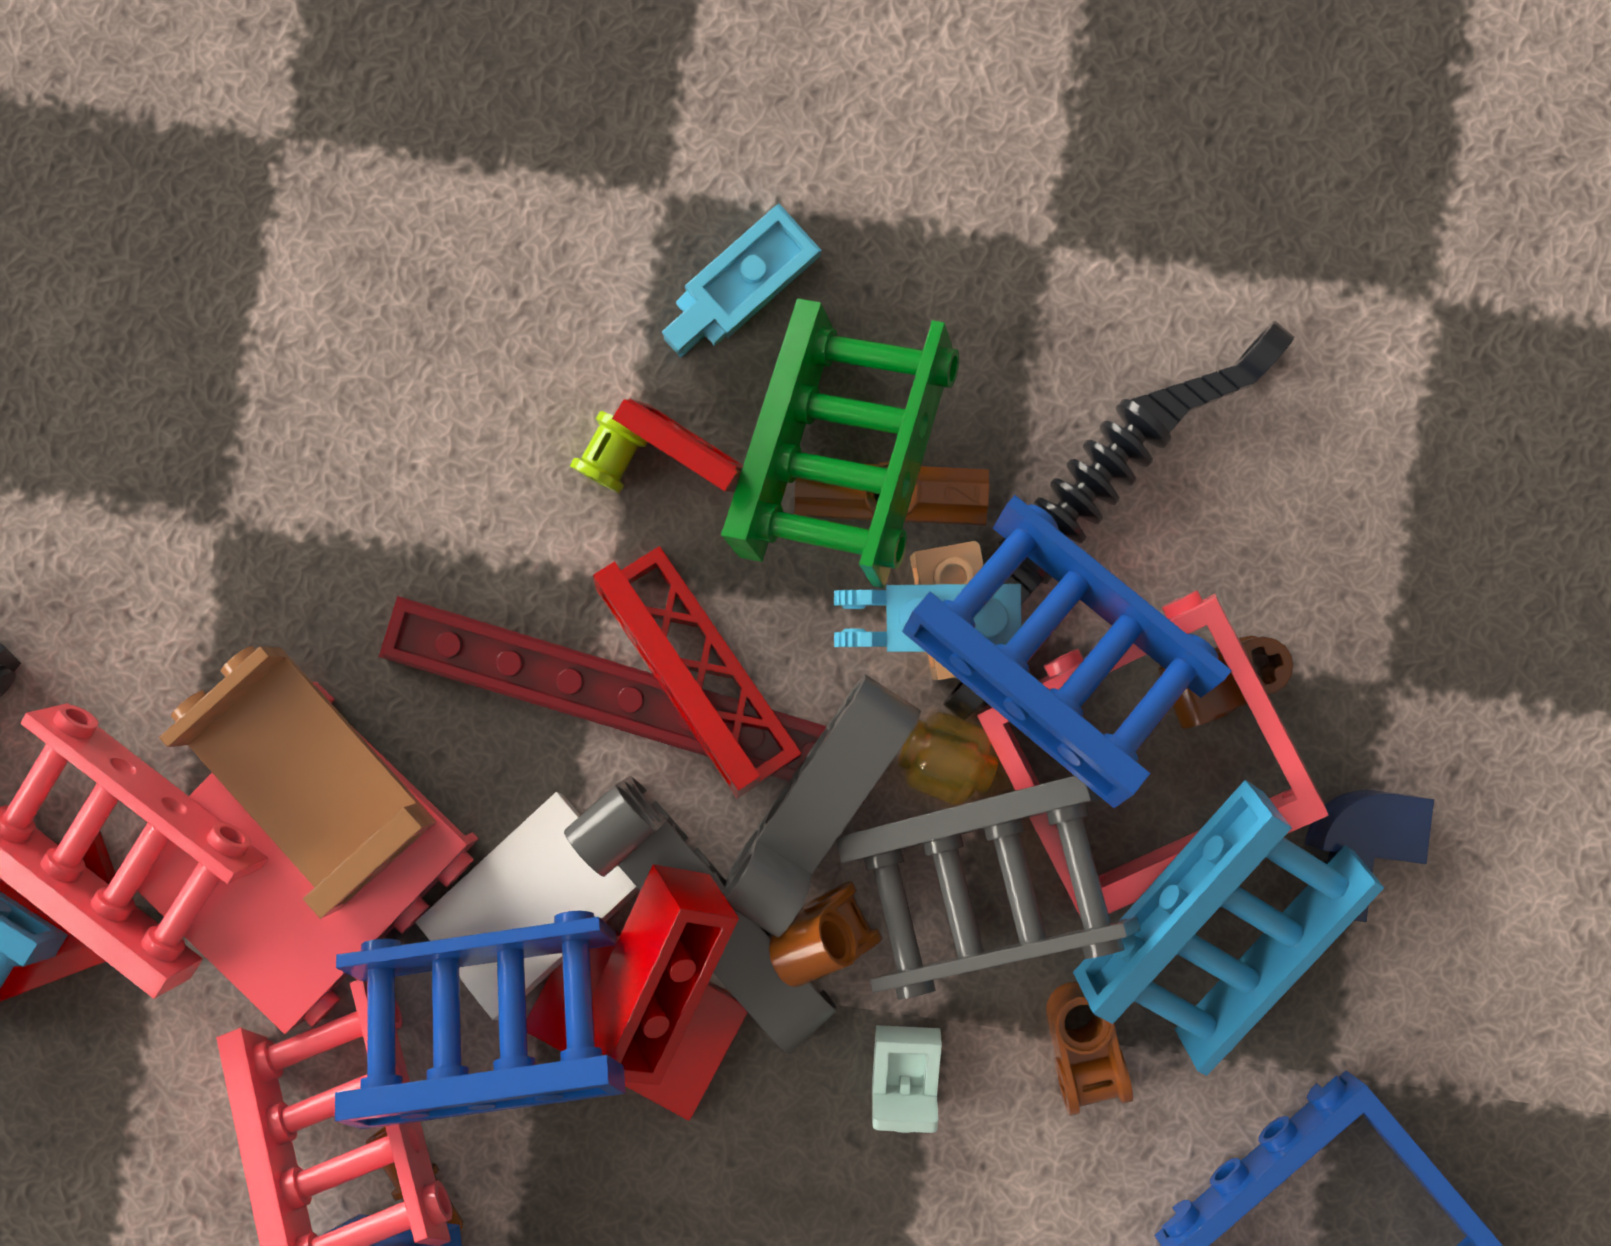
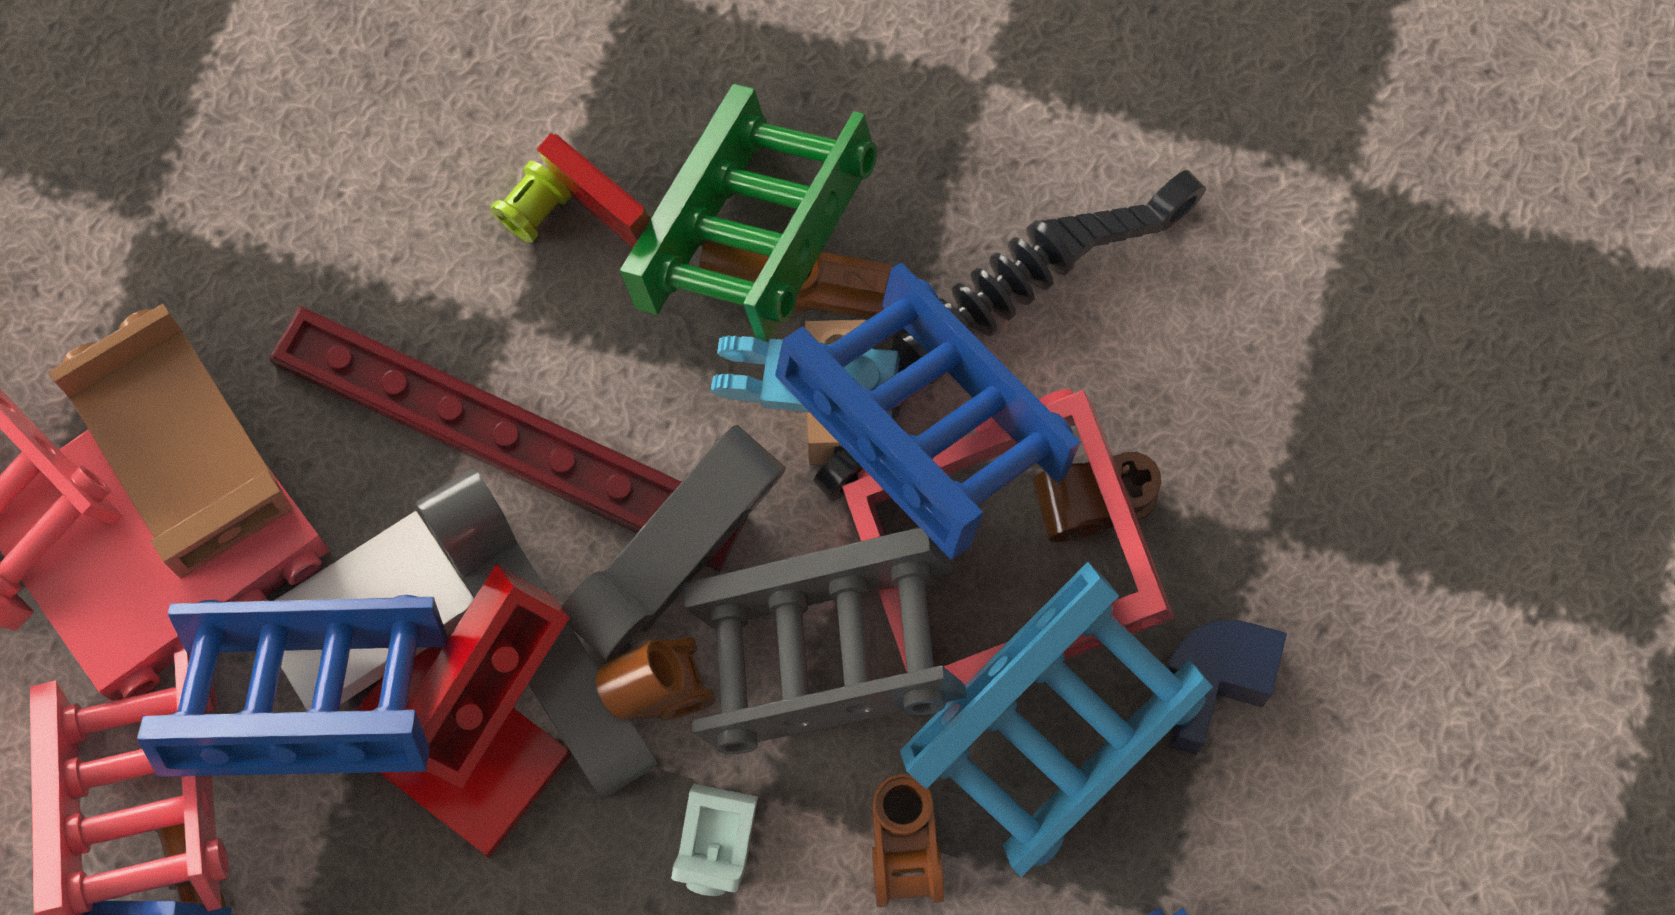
camera: 10 degrees right, 15 degrees down
(677, 681) = (563, 419): red fence -> none
(741, 281) = (684, 69): medium azure hinge -> none
(948, 758) = (805, 523): clear yellow head -> none

